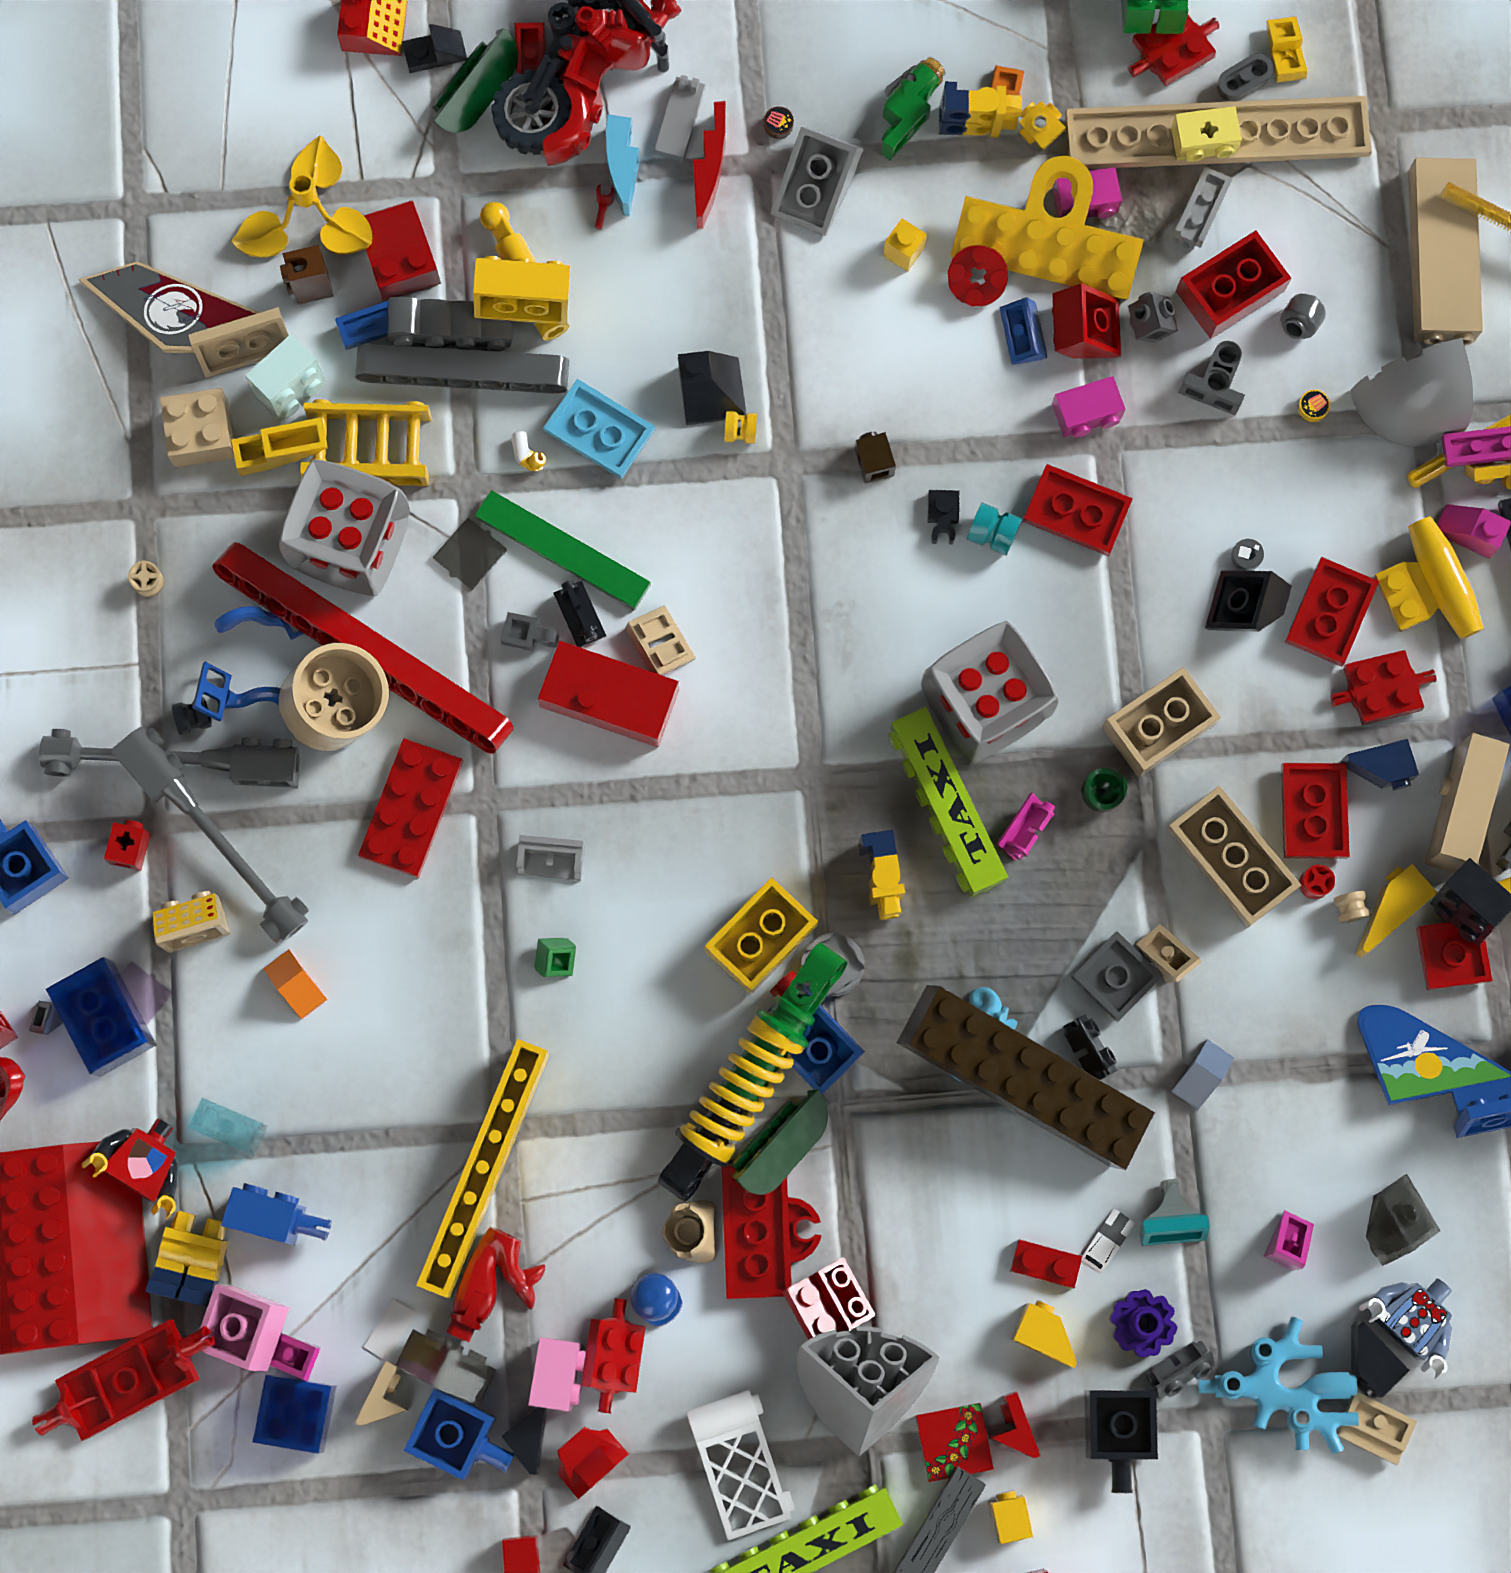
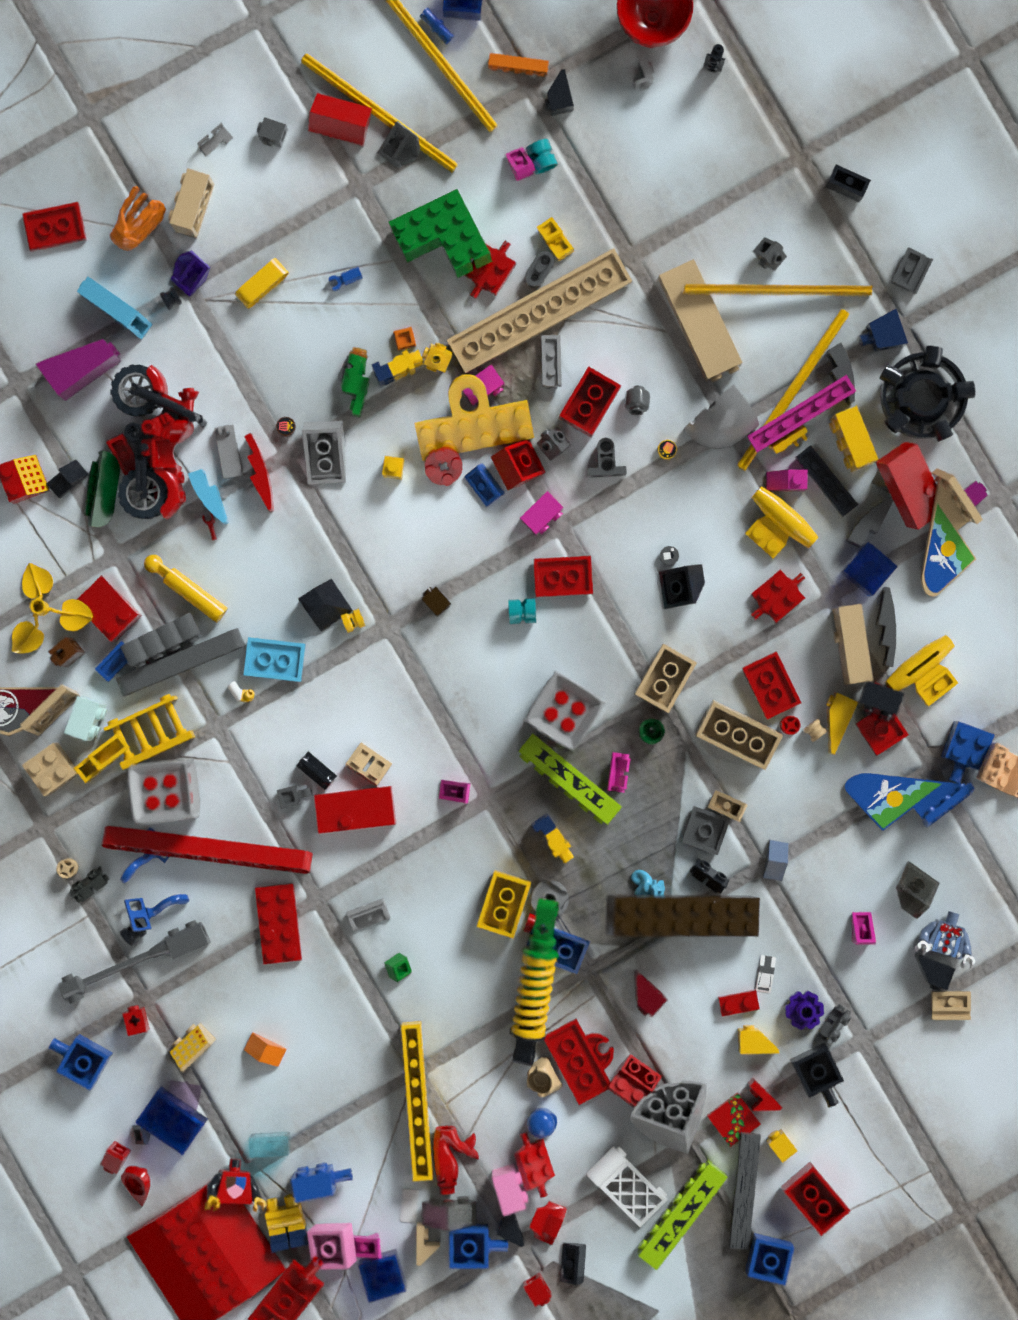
camera: 25 degrees left, 10 degrees up
(152, 619) = (94, 879): none -> pearl dark grey hinge
(161, 776) = (135, 975): dark grey bar -> none
(355, 685) = (222, 893): tan brick -> none
(470, 553) = (238, 765): clear smoke piece -> none
(521, 290) = (193, 607): yellow brick -> none
(563, 550) = (288, 738): green tile -> none
(769, 739) = (454, 791): none -> dark pink slope
(781, 1144) = (568, 1011): dark green brick -> none
(913, 1177) = (647, 996): none -> dark red slope
(943, 510) = (488, 612): black plate -> none
(1173, 1220) = (795, 947): teal piece -> none
(1206, 134) = (539, 310): light yellow brick -> none
(1270, 1395) = (889, 1015): medium azure plant -> none
(1331, 611) = (730, 566): red plate -> none
(1384, 765) = (798, 641): dark blue slope -> none

